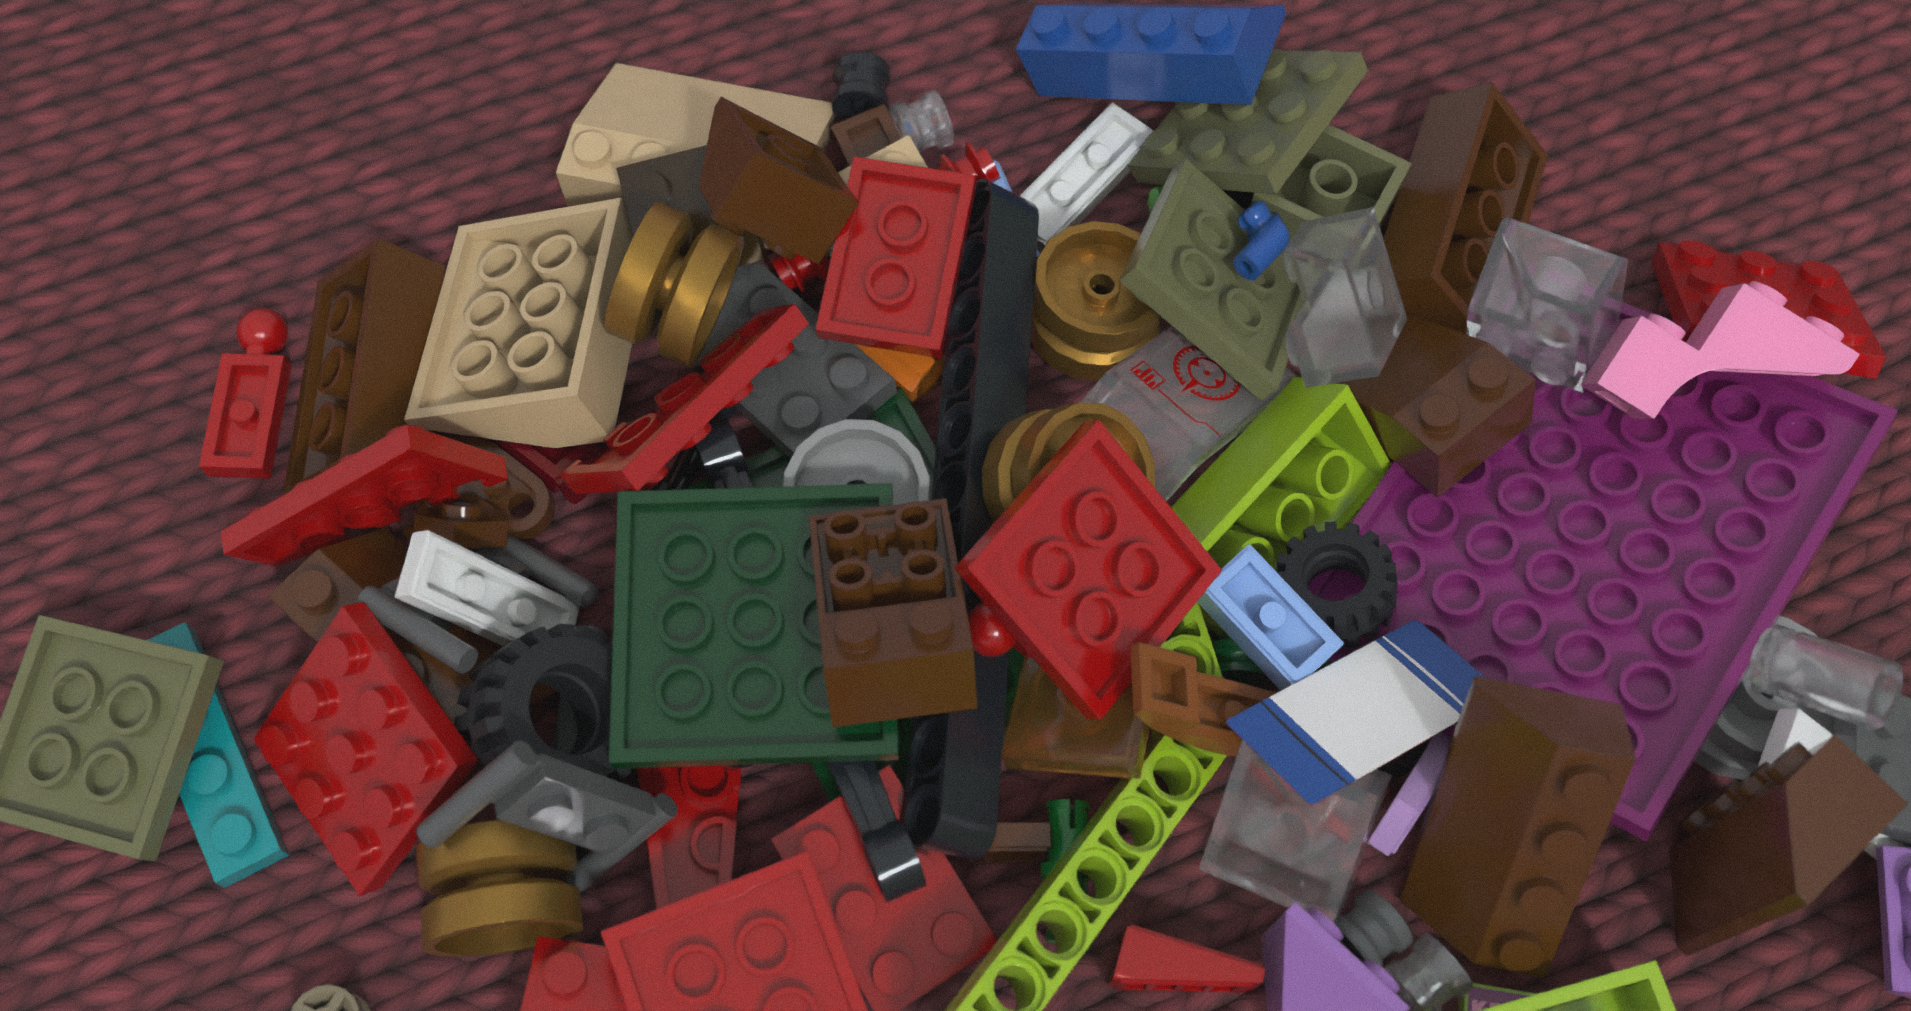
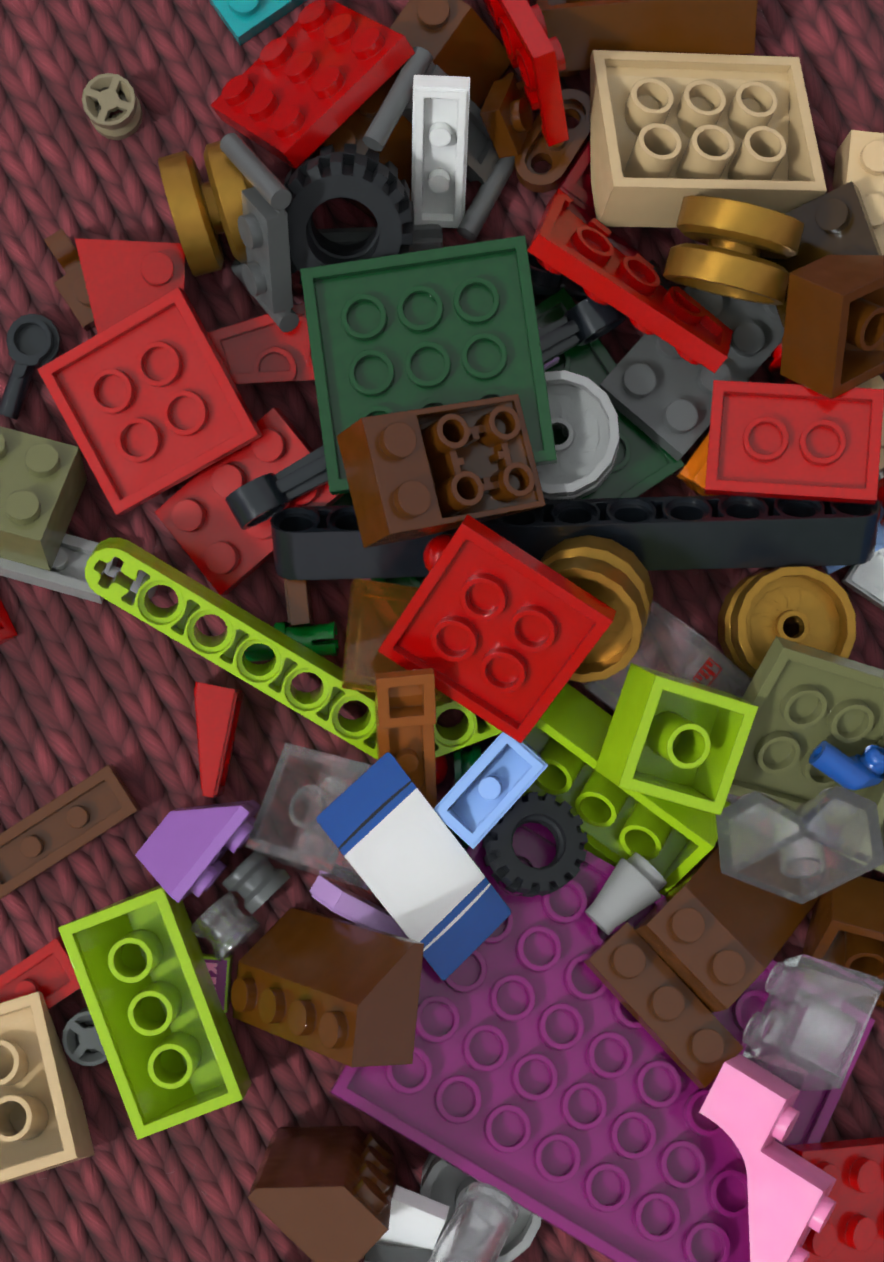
camera: 85 degrees right, 20 degrees up
(1228, 400) = (675, 739): none -> lime brick
(1393, 490) = (626, 892): none -> light grey cone
(1523, 463) = (663, 1005): none -> reddish brown plate

